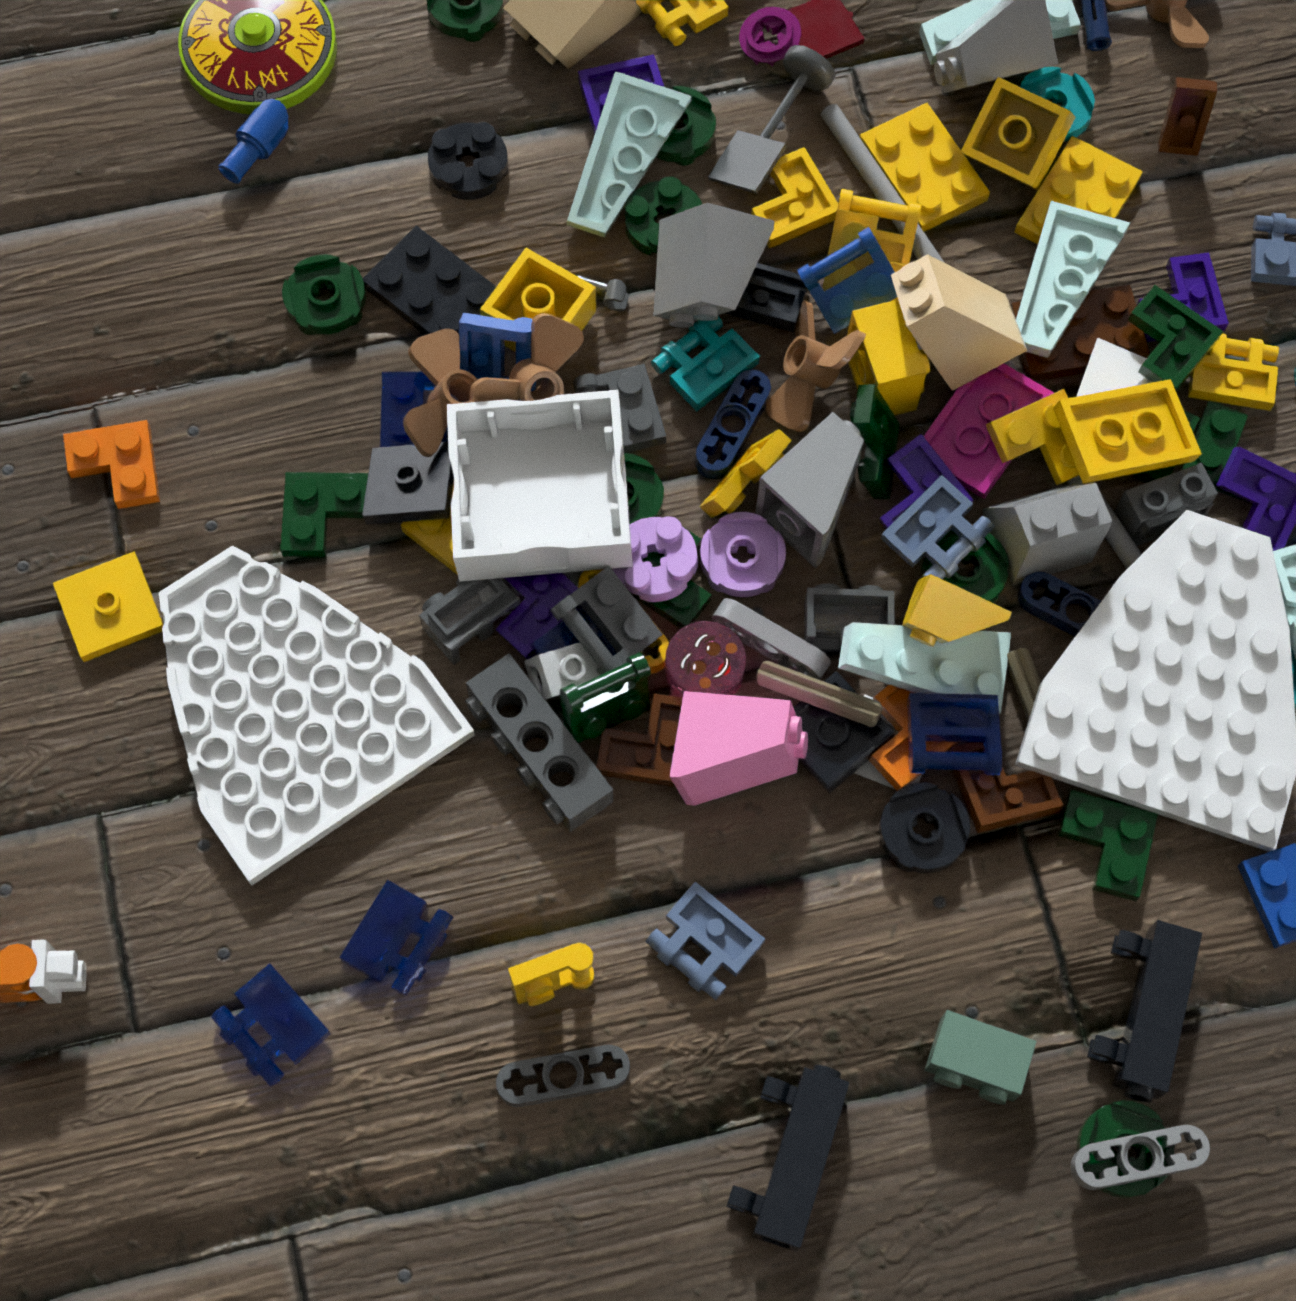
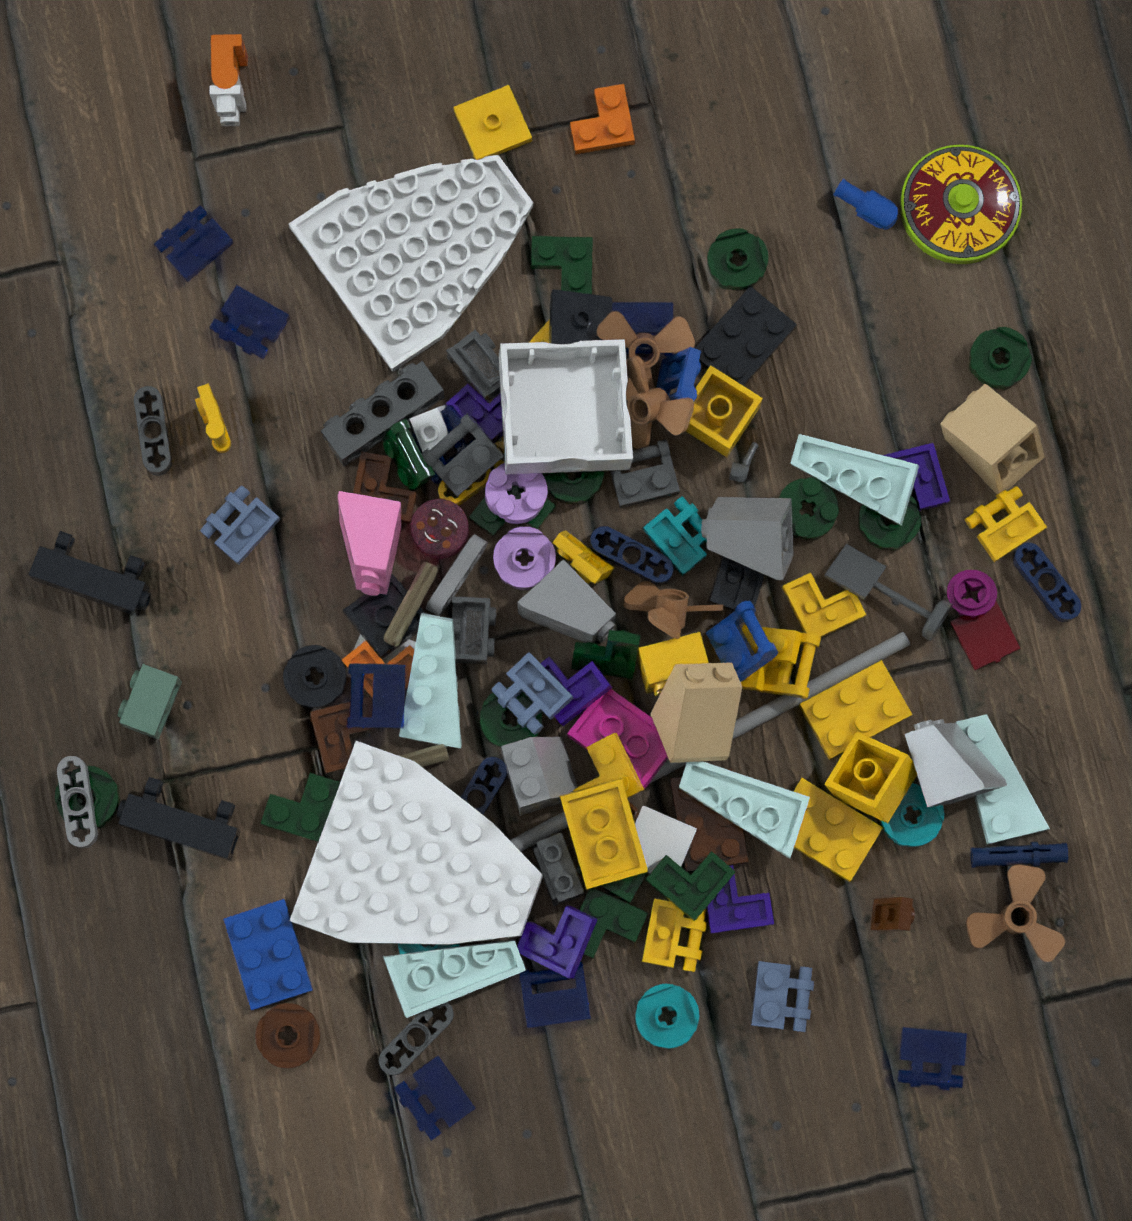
camera: 90 degrees right, 10 degrees up
(464, 140) = (867, 348): black plate -> none
(947, 612) = (460, 694): yellow slope -> none

